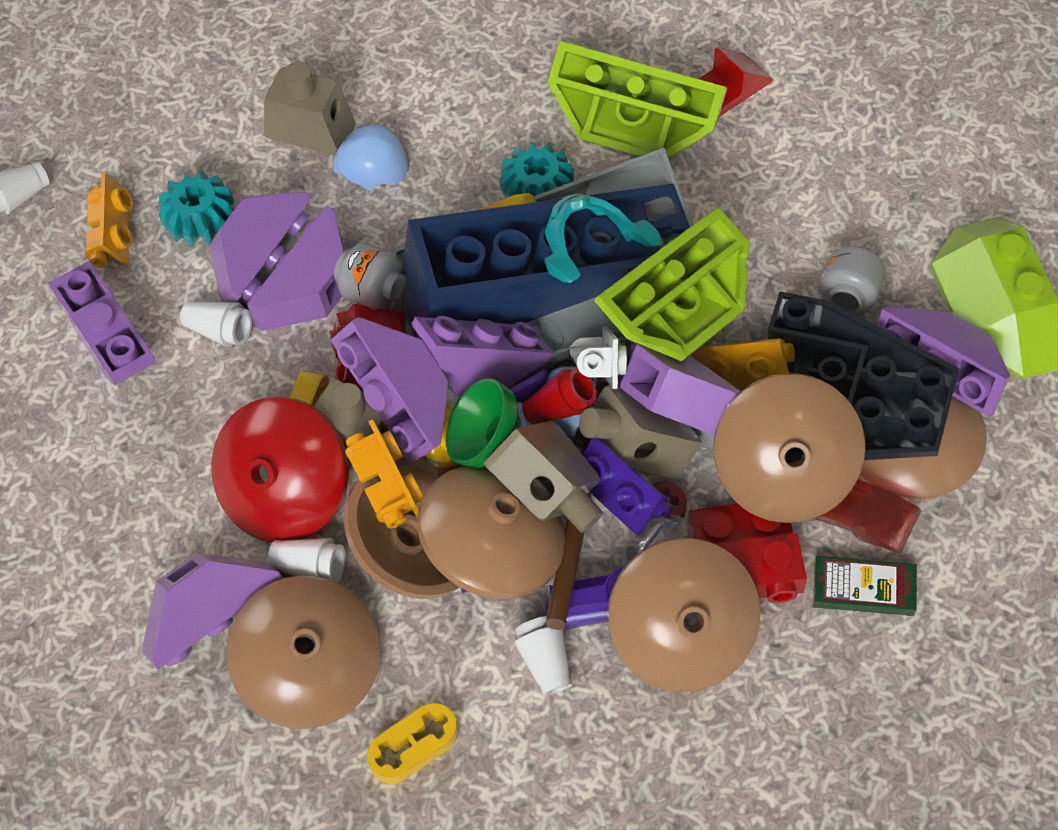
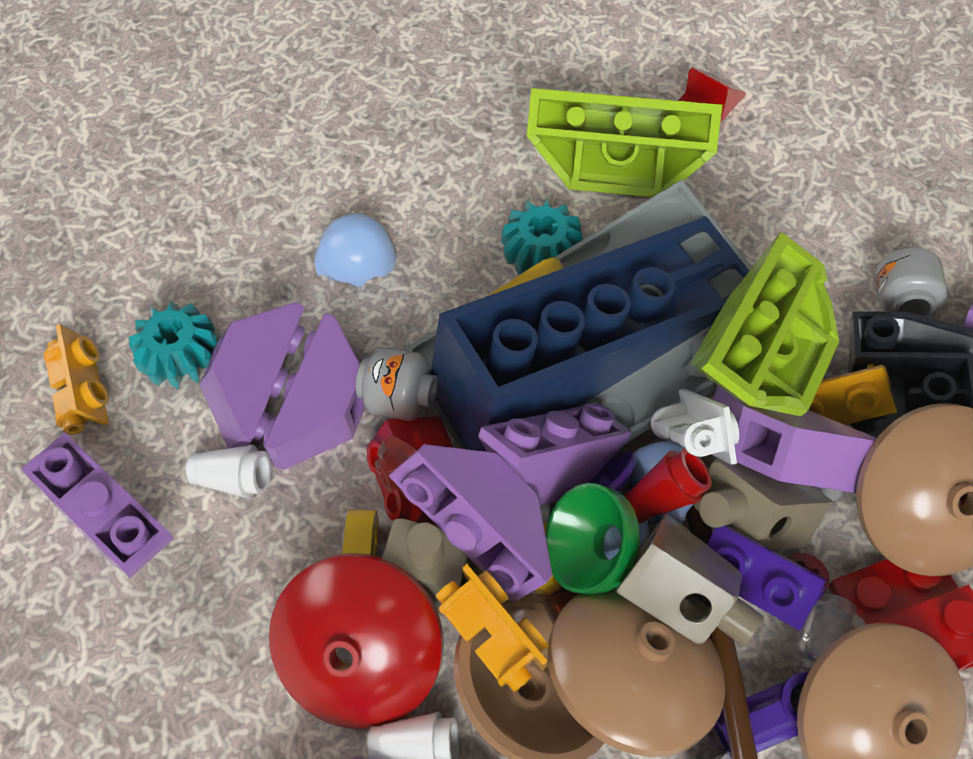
camera: 15 degrees left, 0 degrees up
(307, 110) = (273, 212): dark tan torso -> none
(559, 263) = (624, 328): teal helmet -> none

